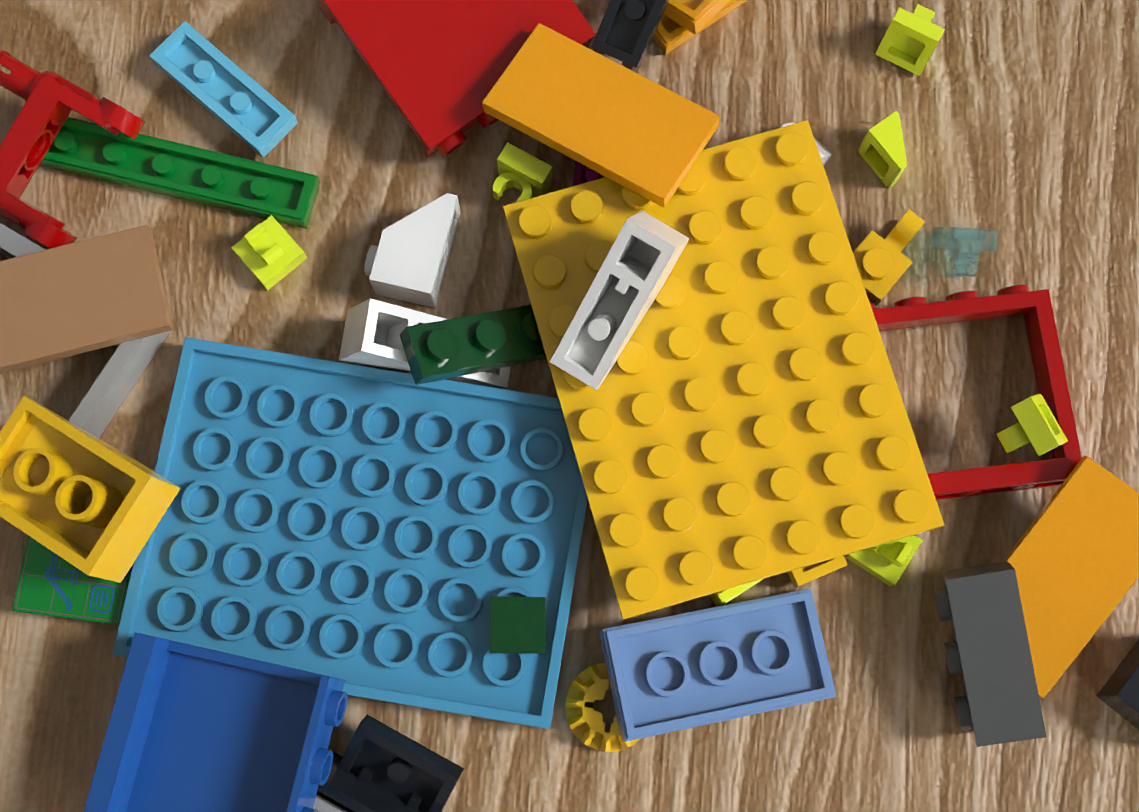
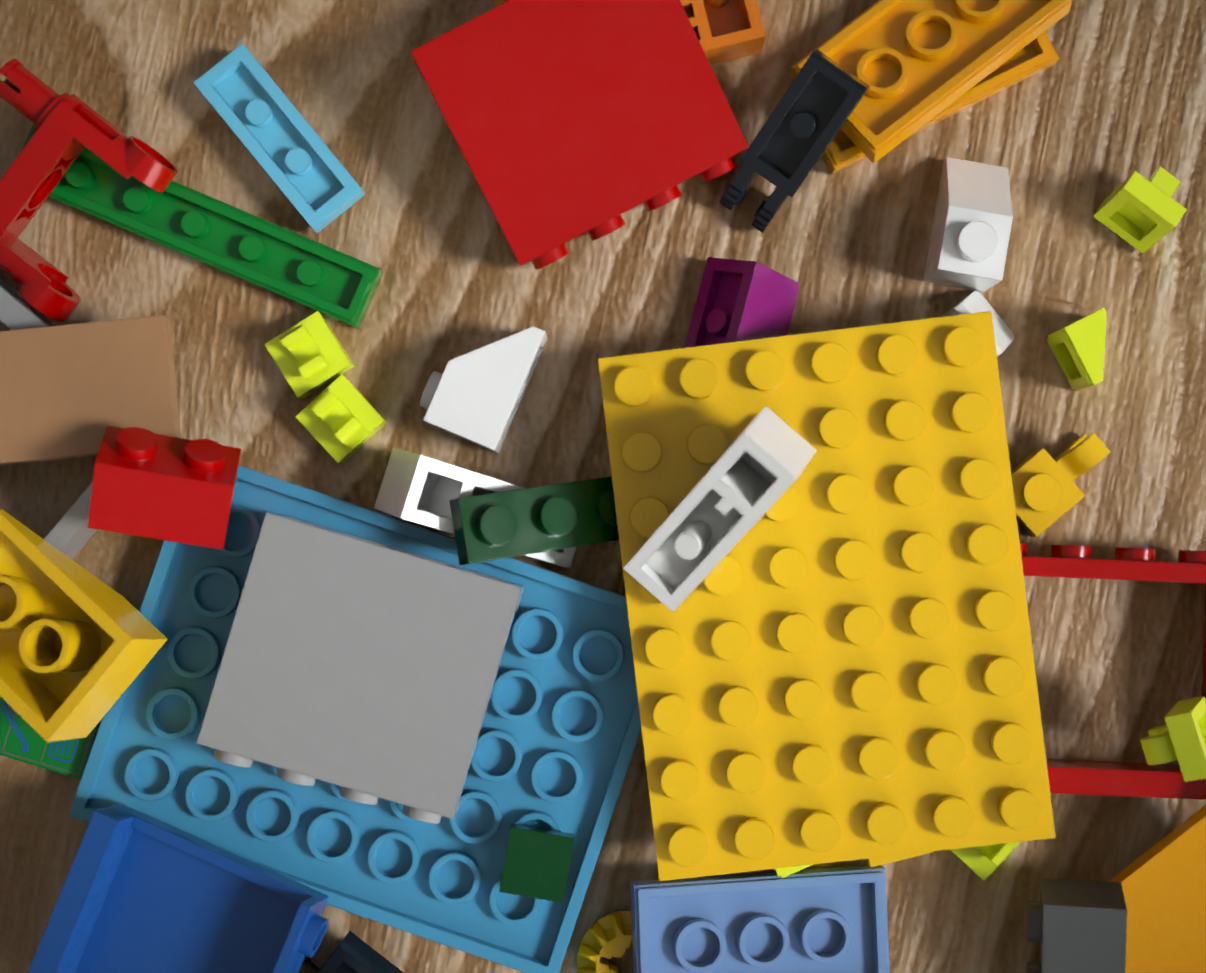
camera: 15 degrees right, 10 degrees up
(162, 356) = (163, 487): none -> red brick
(302, 298) = (341, 419): none -> neon yellow tile
(344, 481) = (359, 667): none -> light grey panel
(522, 172) = (630, 309): neon yellow tile -> none
(601, 114) = (737, 264): light orange tile -> none
(780, 75) = (970, 226): none -> white slope
(963, 247) = (1151, 488): clear light blue tile -> none

